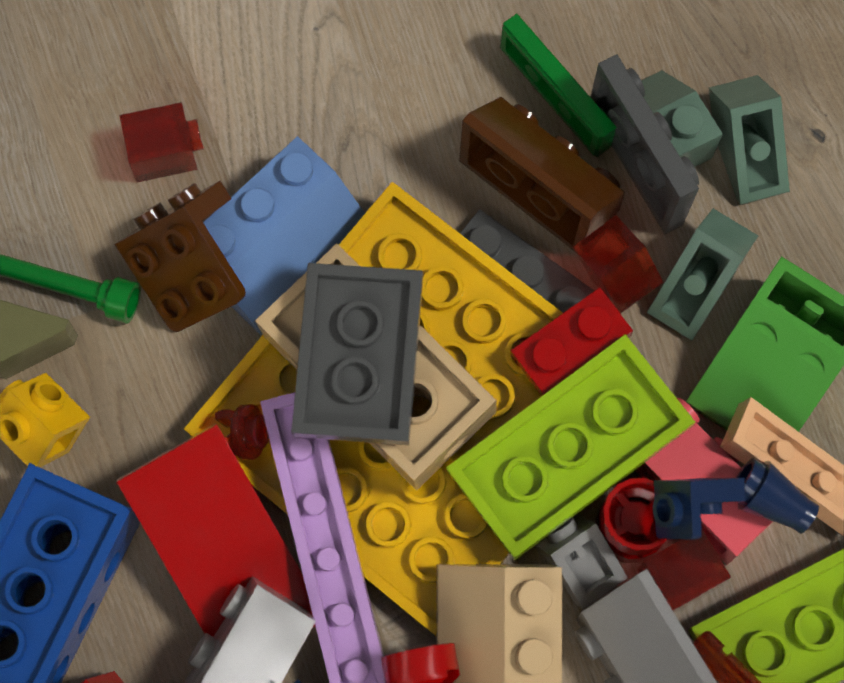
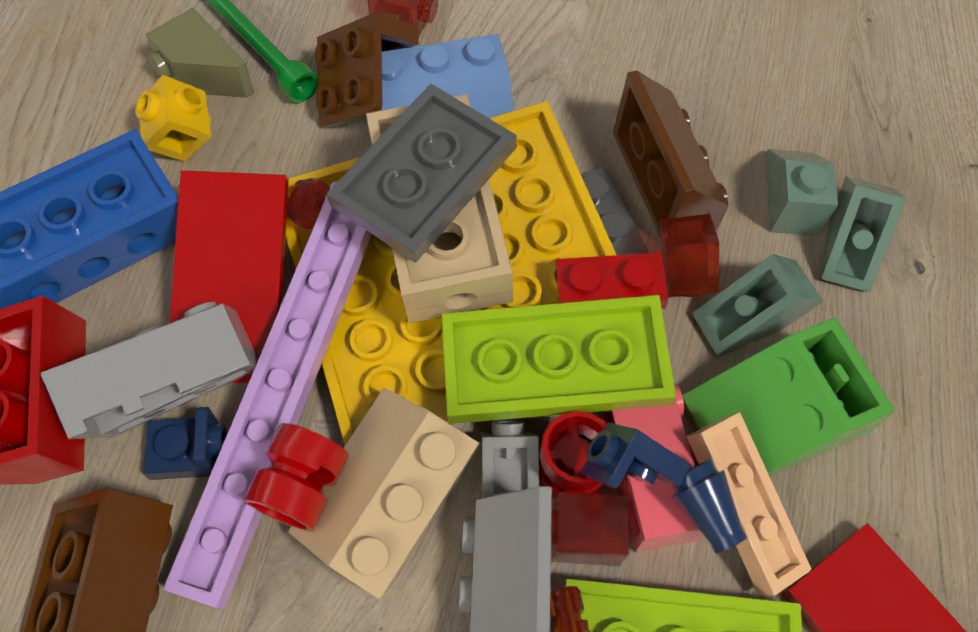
camera: 30 degrees right, 10 degrees down
(557, 86) = (722, 117): green tile -> none
(645, 145) = (766, 180): dark grey plate -> none

